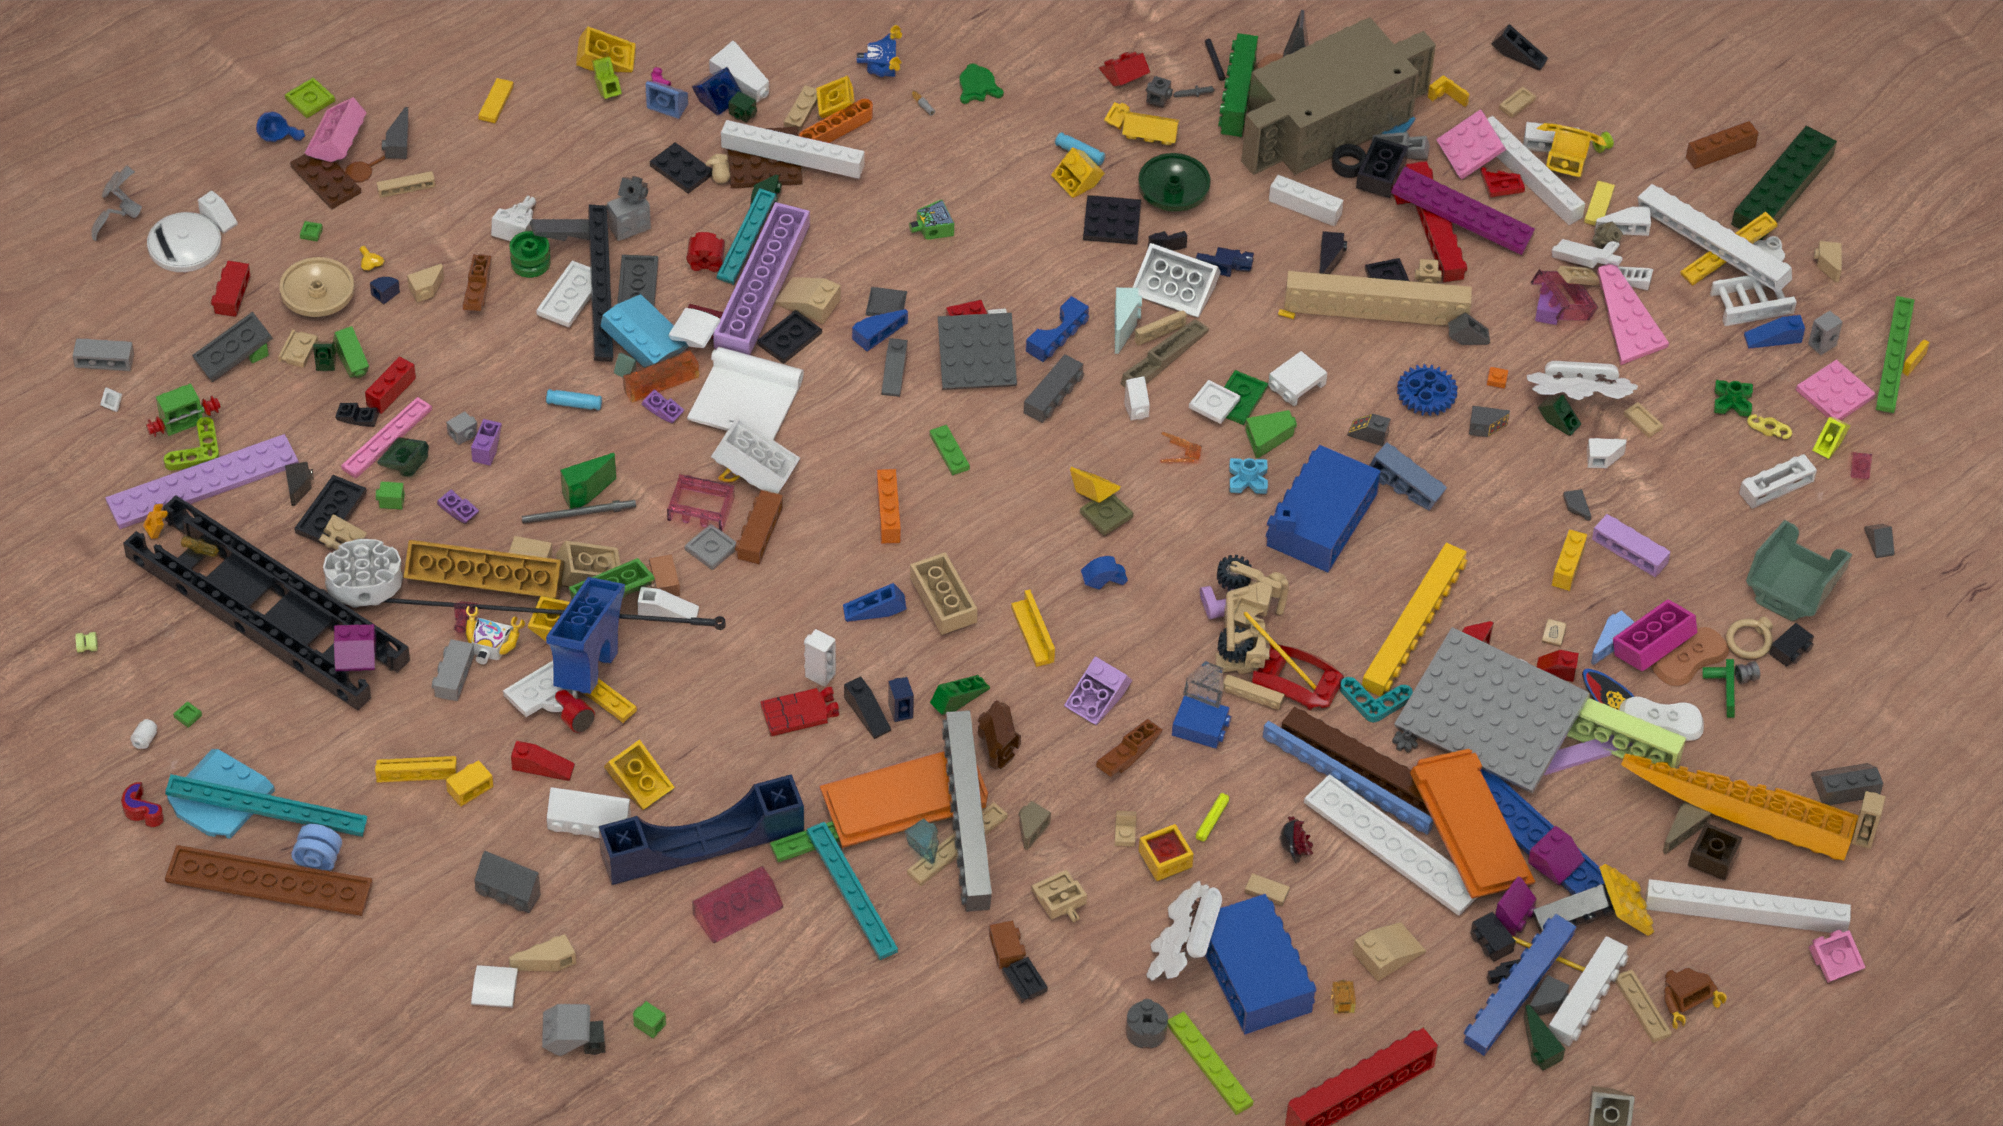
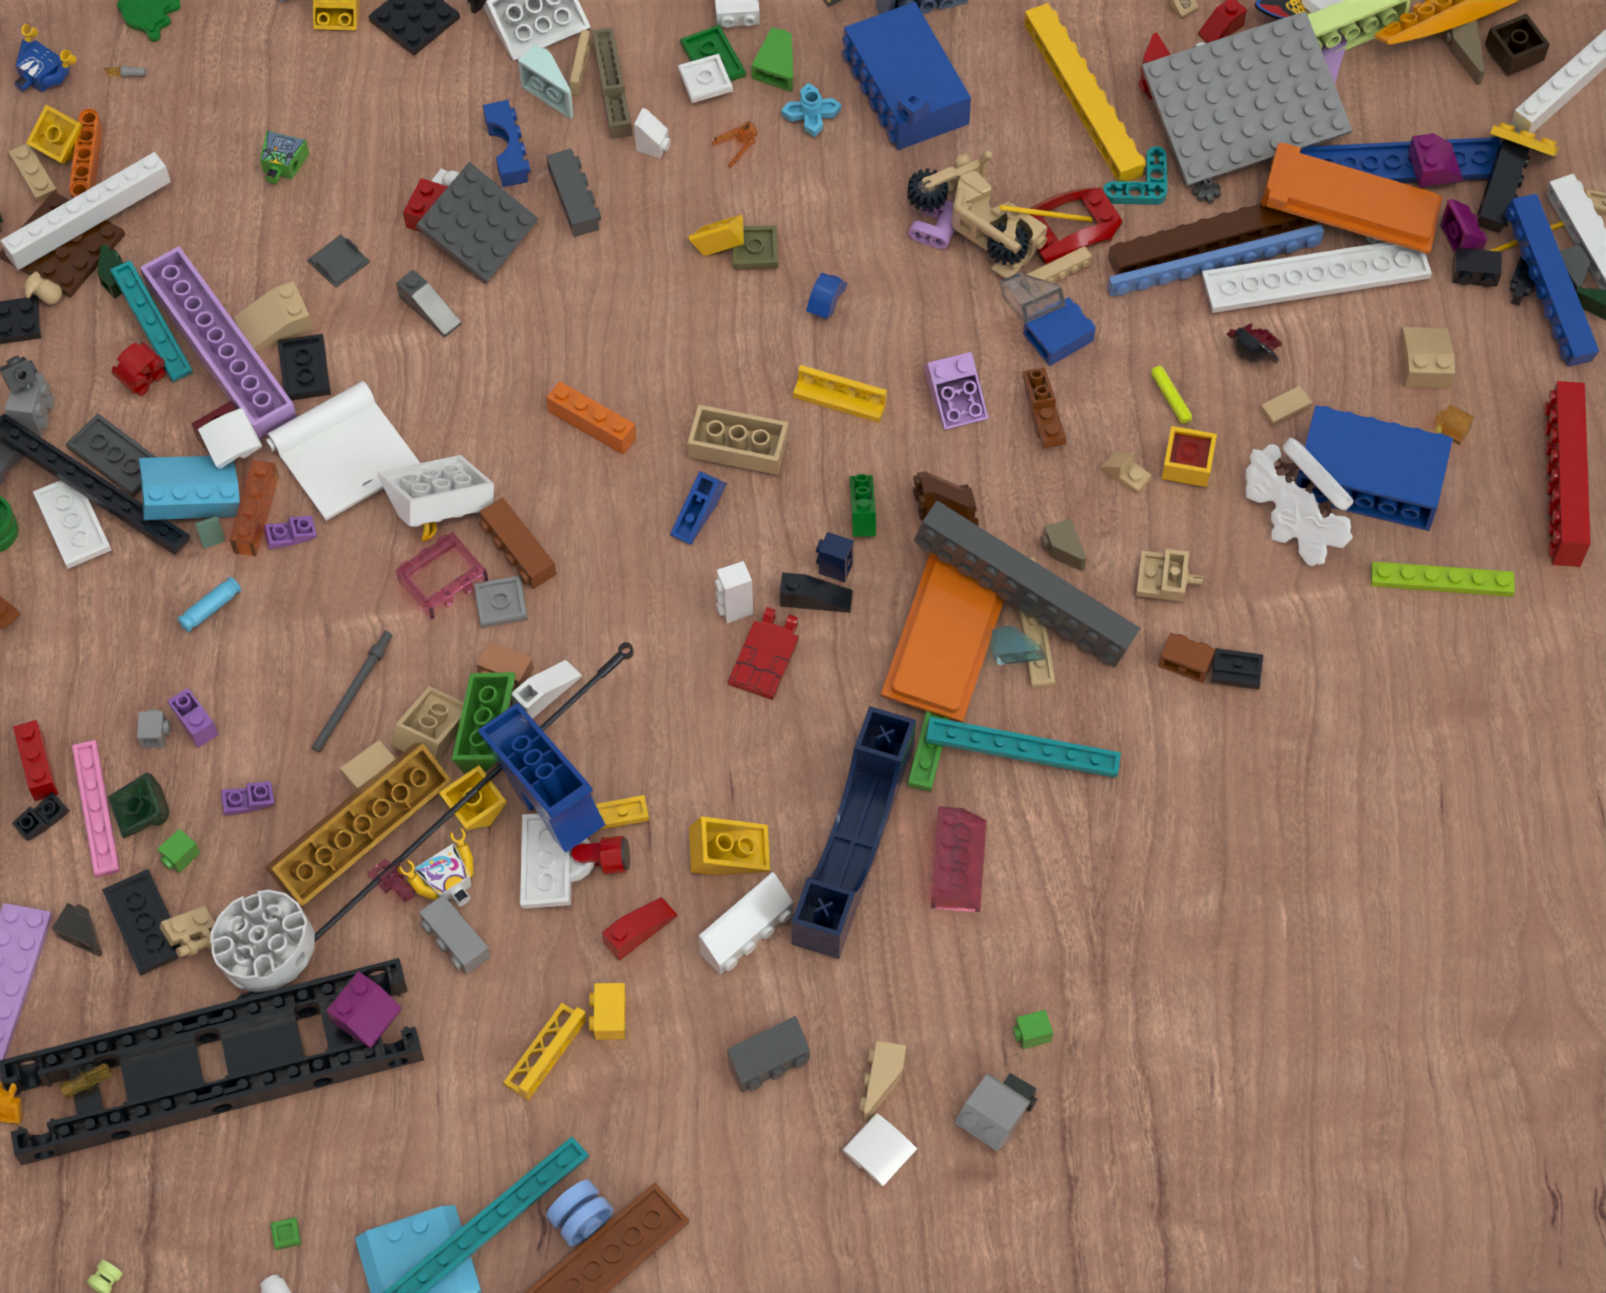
camera: 50 degrees left, 10 degrees up
(587, 480) = (326, 665): green slope -> none
(877, 328) = (365, 289): blue slope -> none
(949, 450) = (564, 324): bright green plate -> none
(1146, 1024) = (1368, 600): dark grey brick -> none

